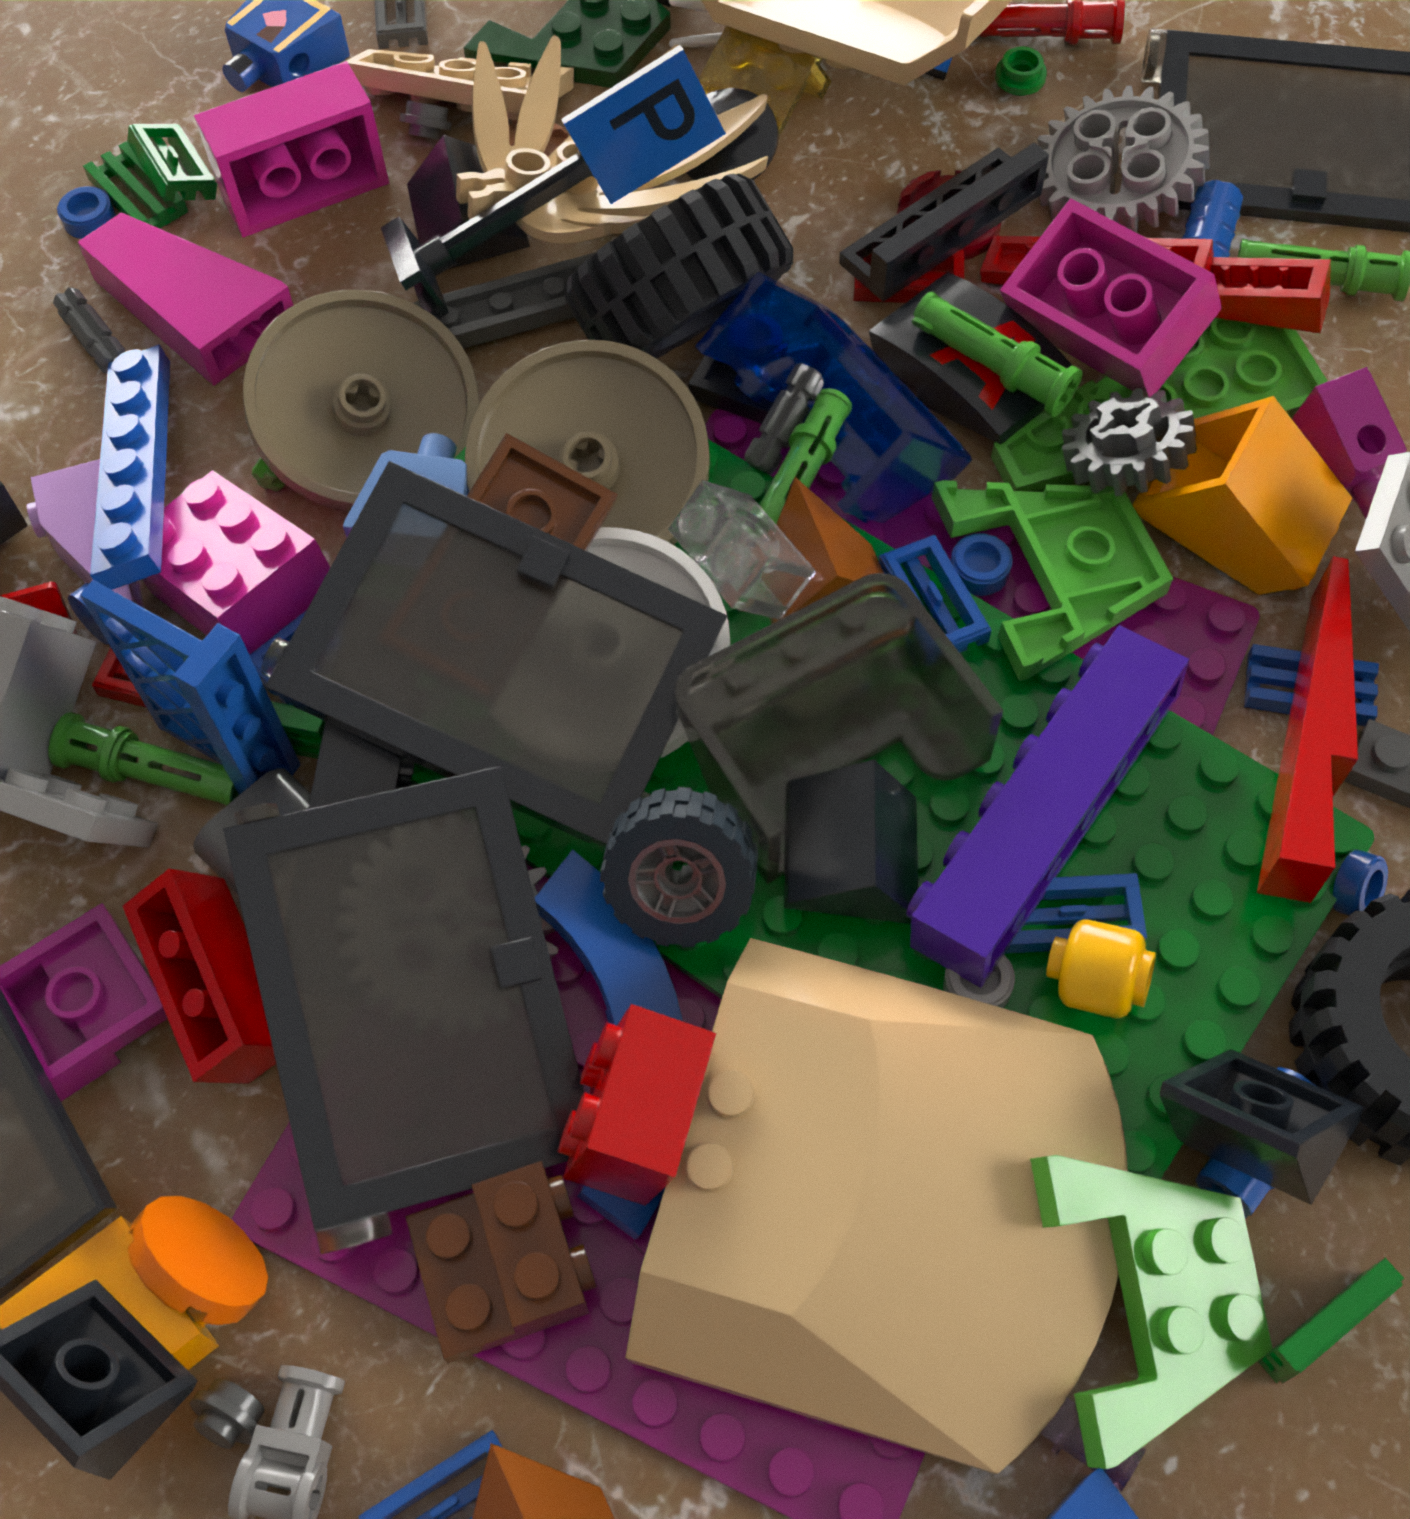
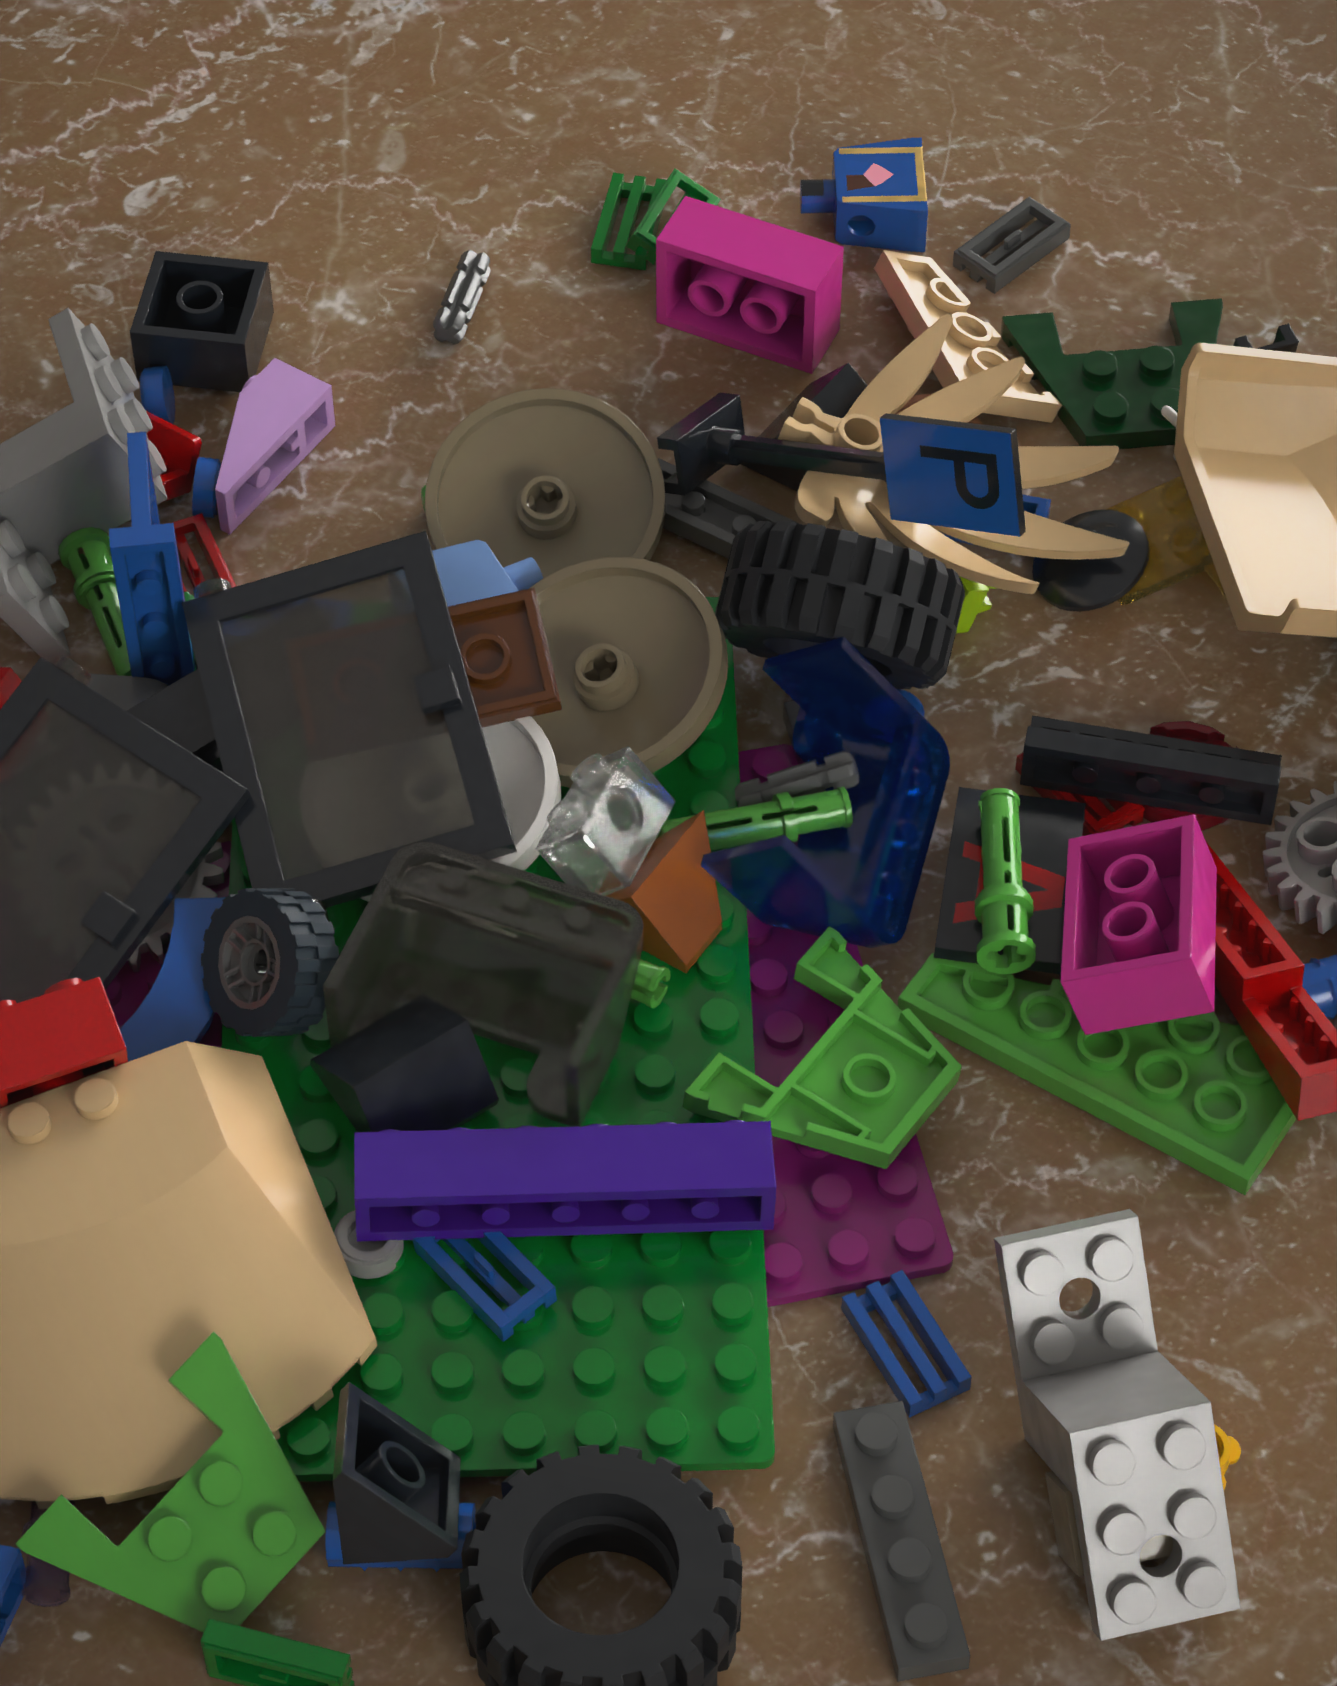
camera: 50 degrees right, 10 degrees down
(84, 210) = (575, 209): blue tile -> none
(132, 469) = (339, 405): plate -> none
(185, 293) = (547, 319): dark pink slope -> none
(235, 562) = (306, 511): dark pink brick -> none
(425, 119) = (887, 341): dark grey plate -> none
(976, 625) = (686, 1036): blue tile -> none
(982, 563) = (790, 1019): blue tile -> none
(1101, 968) = (436, 1305): yellow head -> none
(1129, 441) = (1001, 1034): dark grey gear -> none
(1251, 498) = (1036, 1154): light orange slope -> none
(1317, 747) = (800, 1344): red slope -> none
(1351, 432) = (1184, 1206): magenta torso -> none
(1359, 881) = (720, 1469): blue tile -> none

